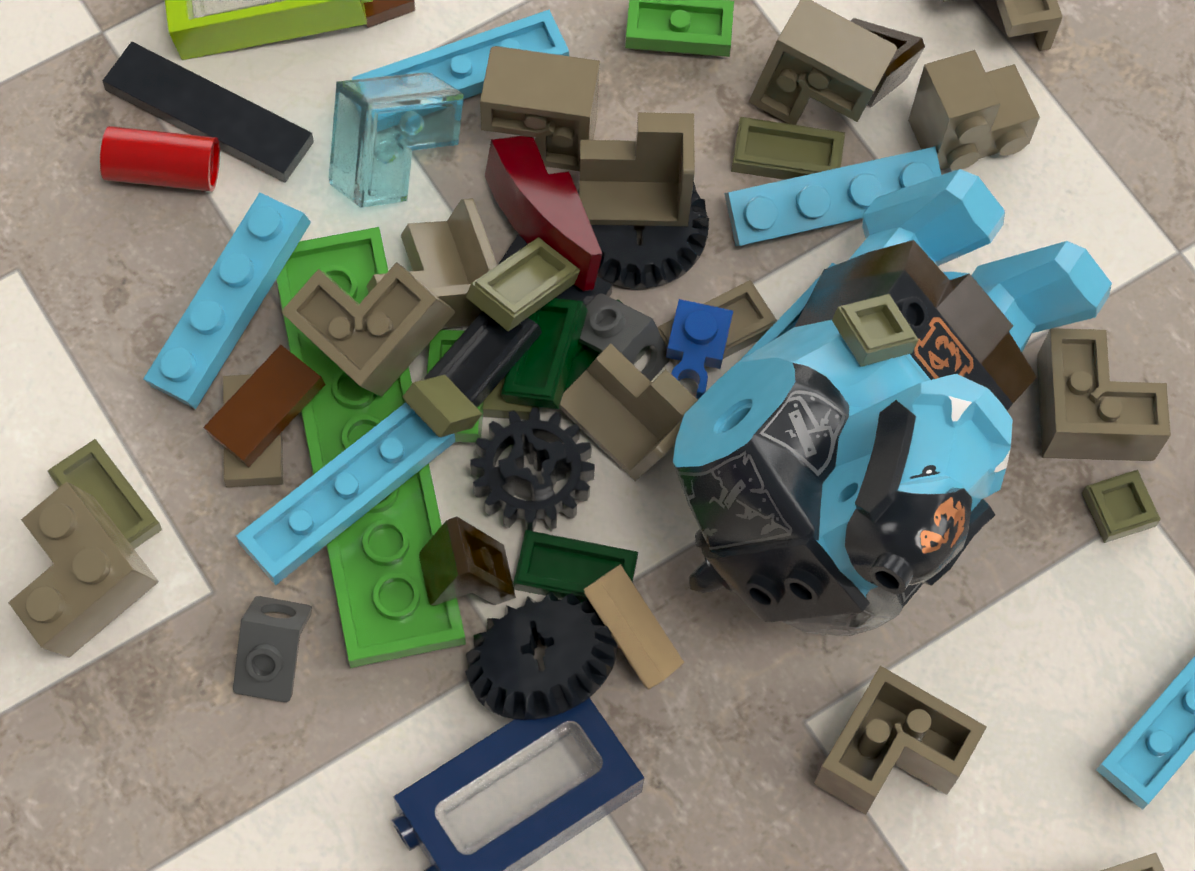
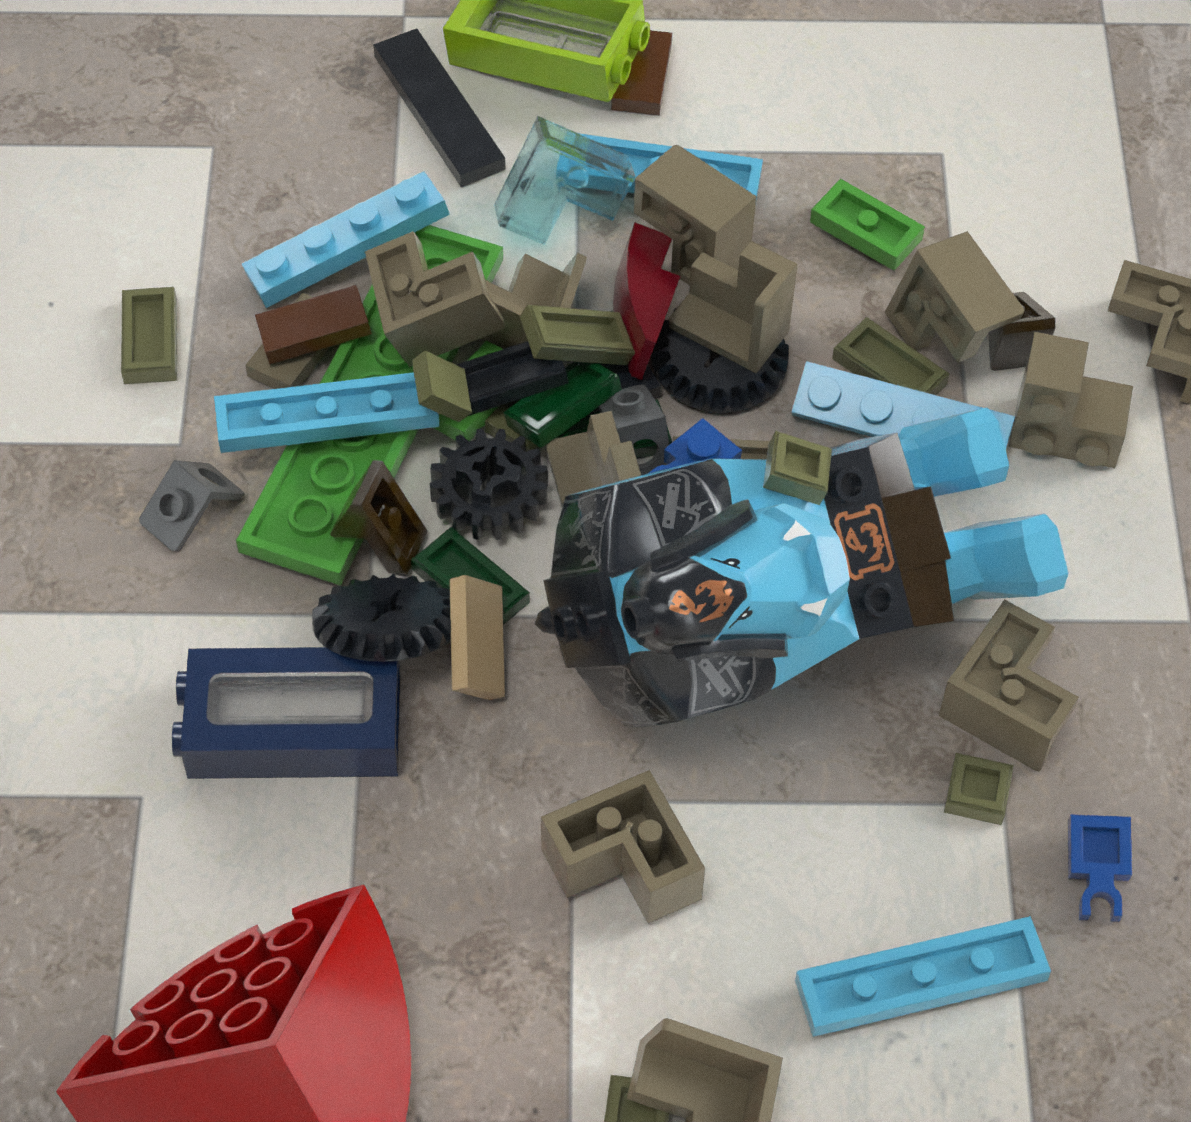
camera: 35 degrees right, 10 degrees down
(91, 577) = (87, 372): dark tan brick -> none
(160, 158) = (373, 117): red pin -> none

